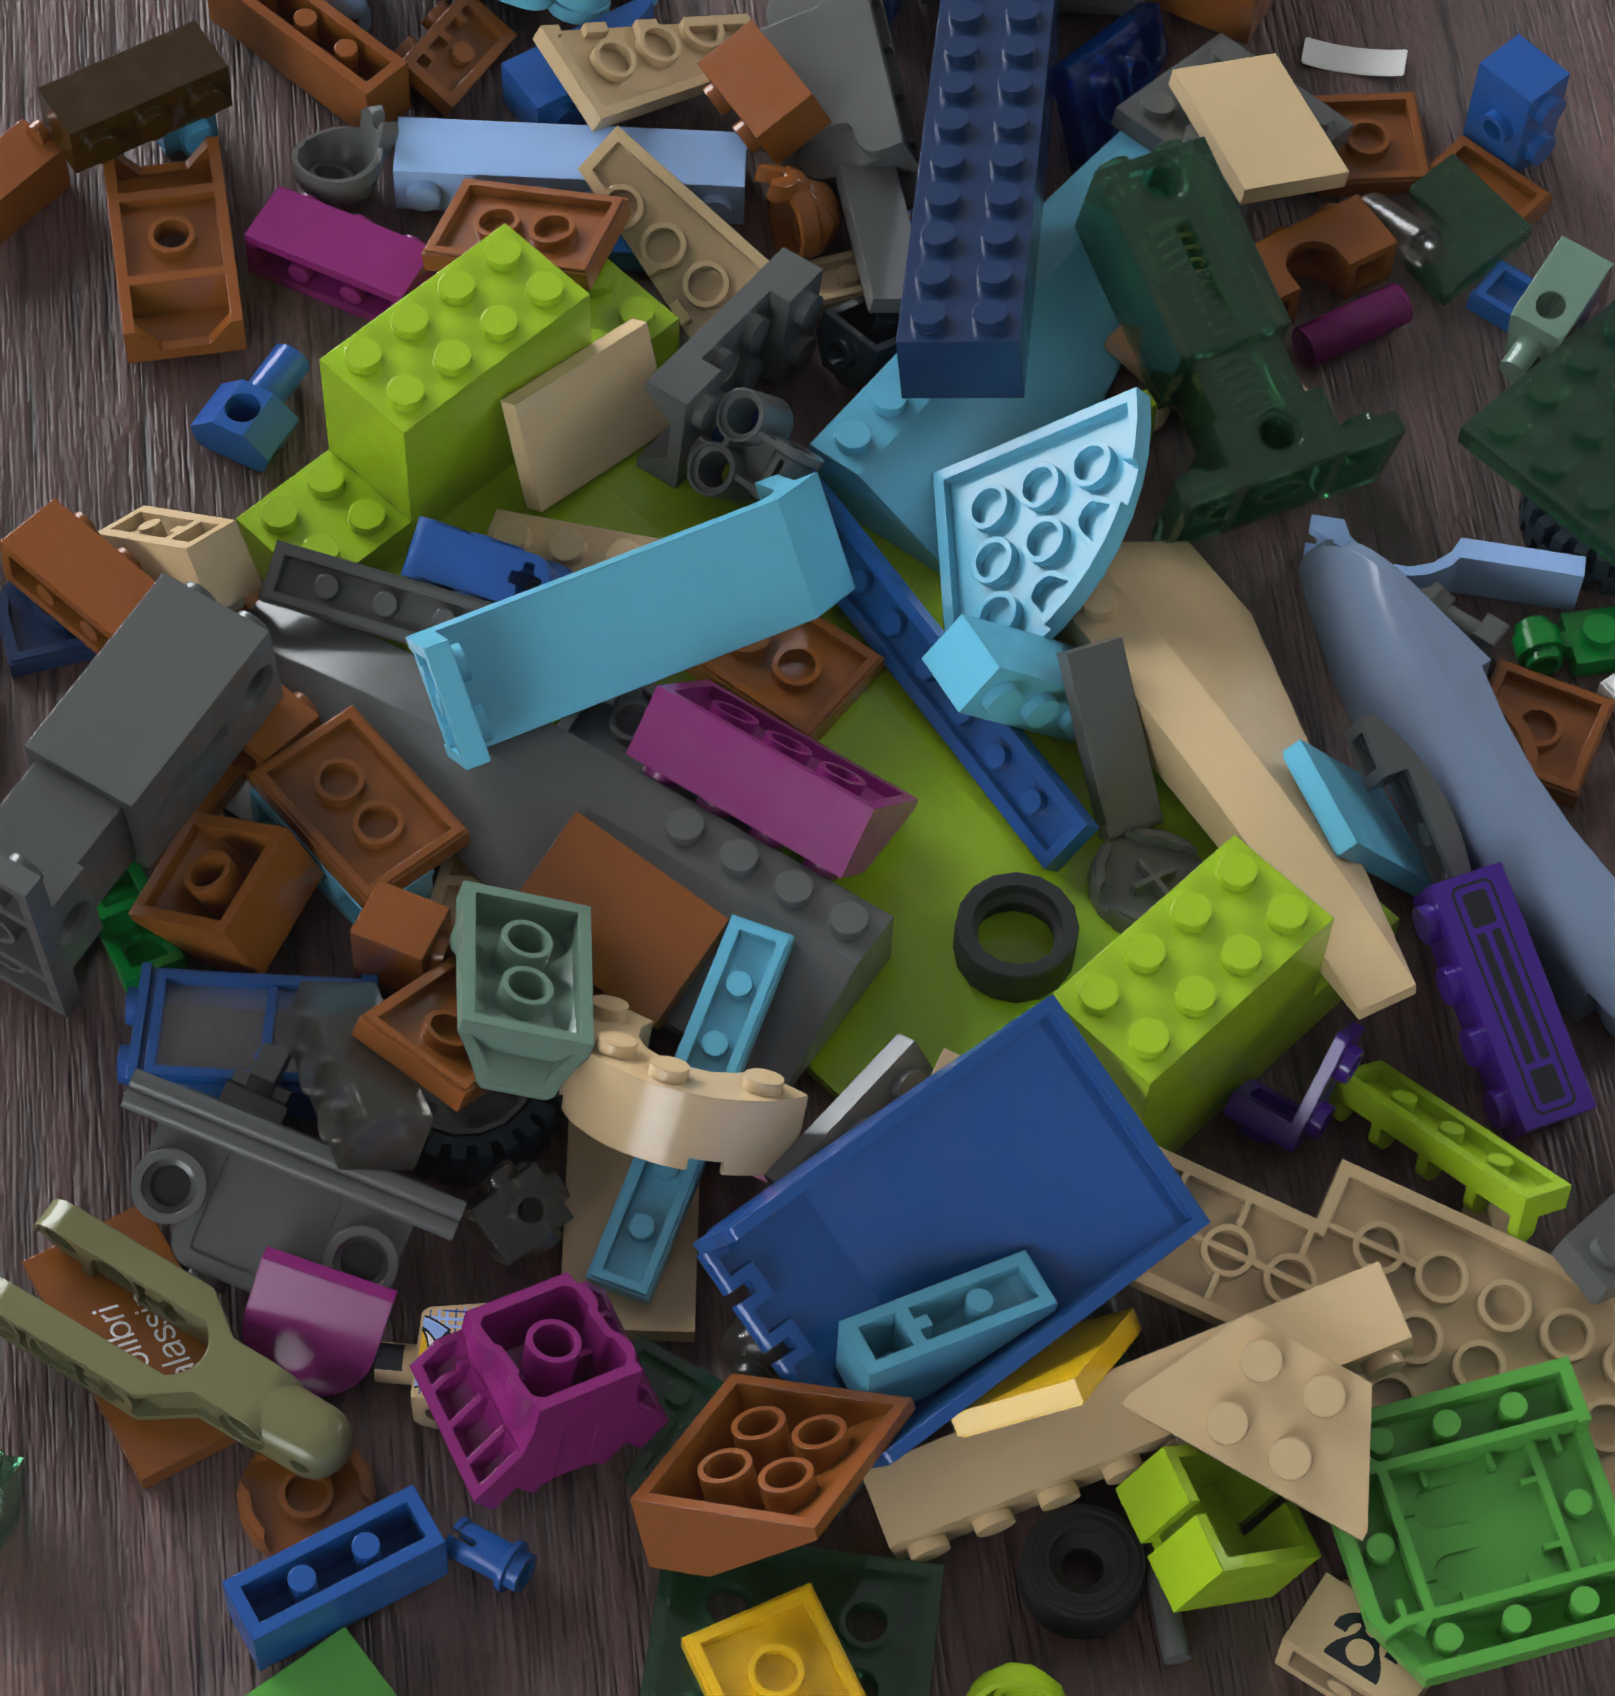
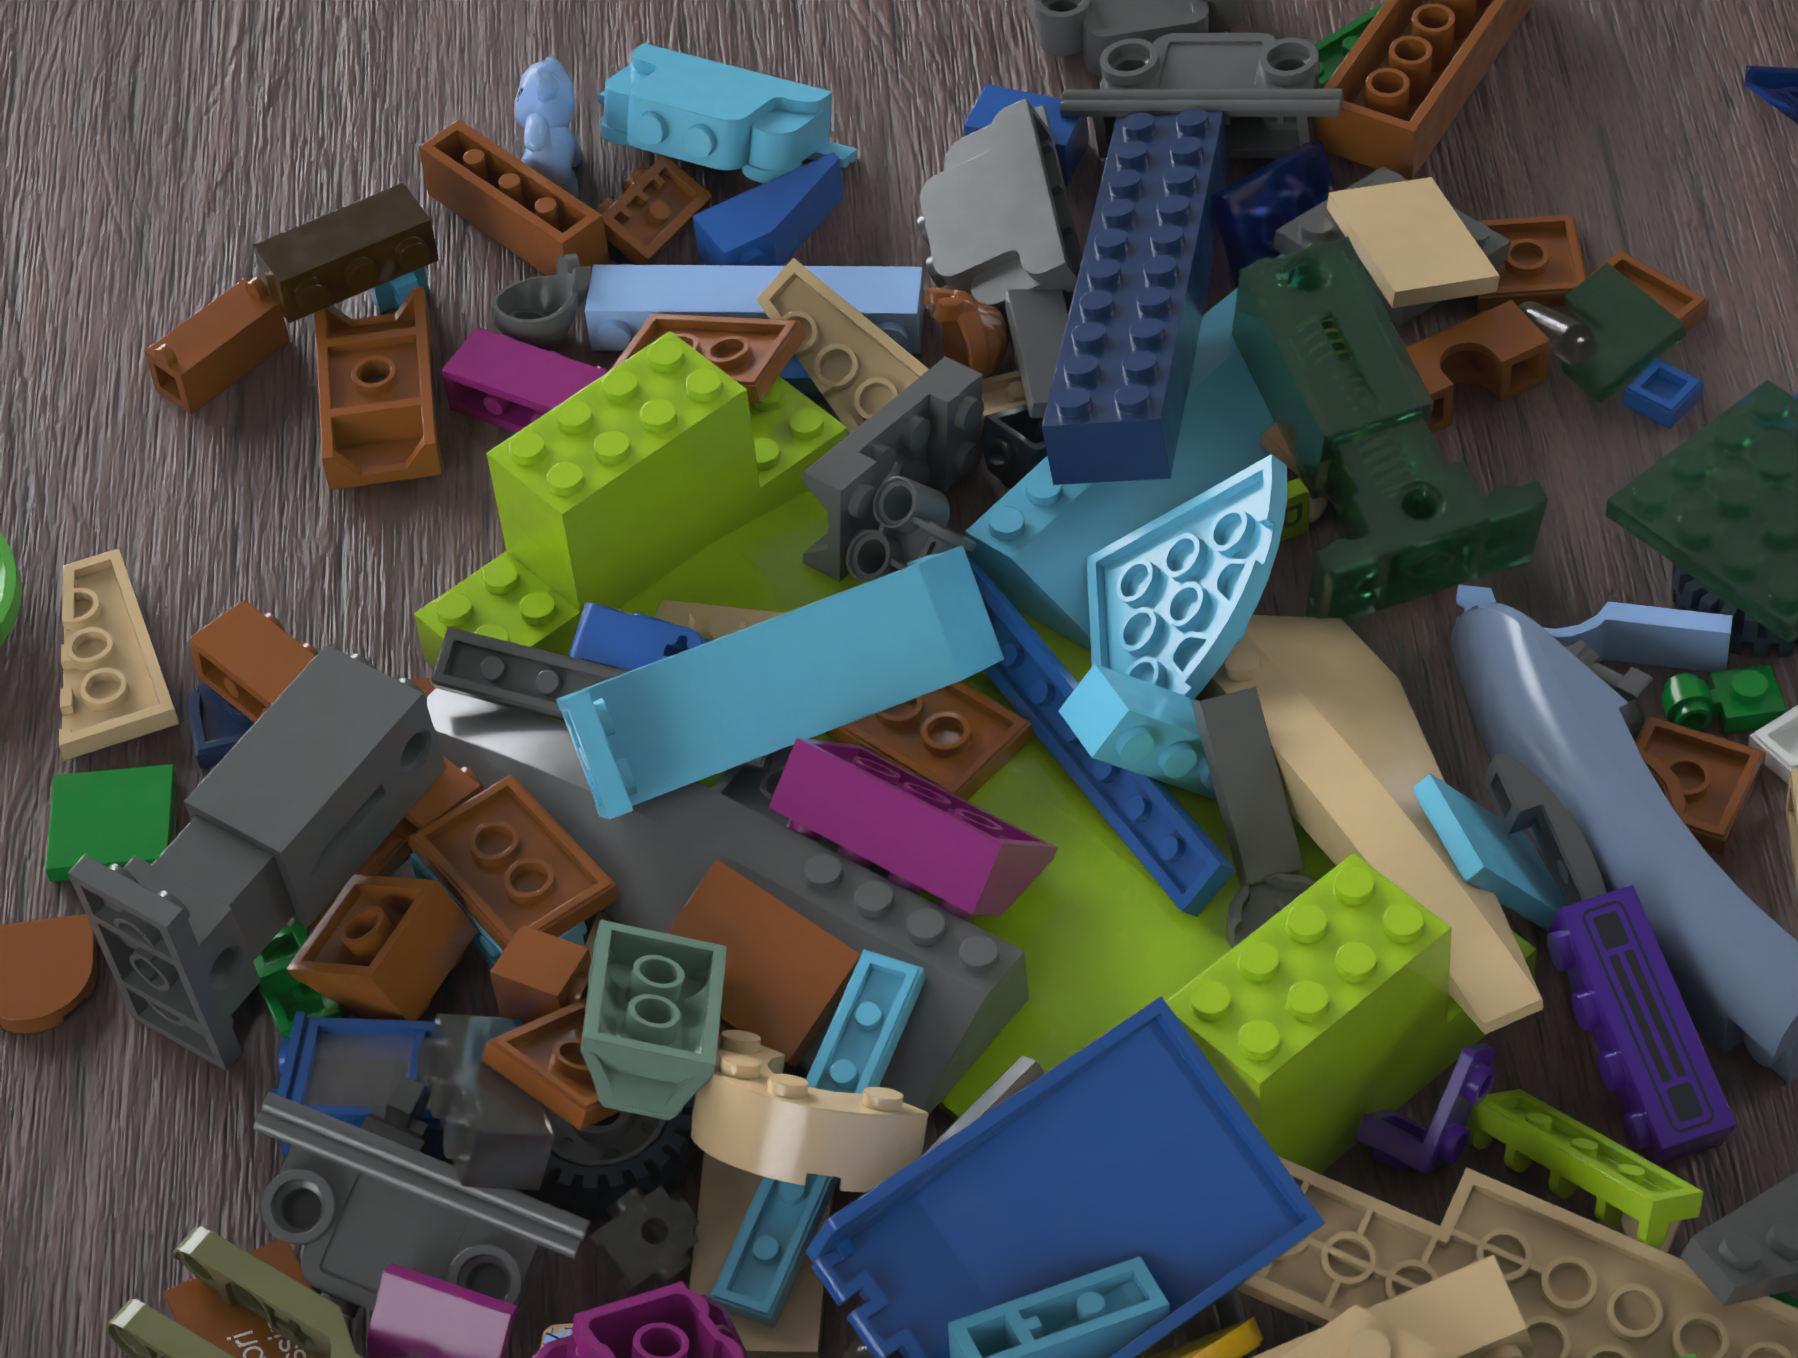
camera: 10 degrees right, 10 degrees down
(189, 549) = (381, 636): tan slope -> none
(250, 417) = (441, 532): blue piece -> none
(583, 415) = (746, 511): tan tile -> none
(633, 68) = (825, 213): tan wing -> none
(763, 92) = (936, 228): dark orange brick -> none
(1026, 895) = (1140, 935): black tyre -> none
(1352, 326) = (1518, 417): magenta piece -> none
(1353, 59) = (1516, 190): white sticker -> none
(1517, 104) = (1669, 215): blue brick -> none
(1555, 305) = (1706, 383): sand green torso -> none

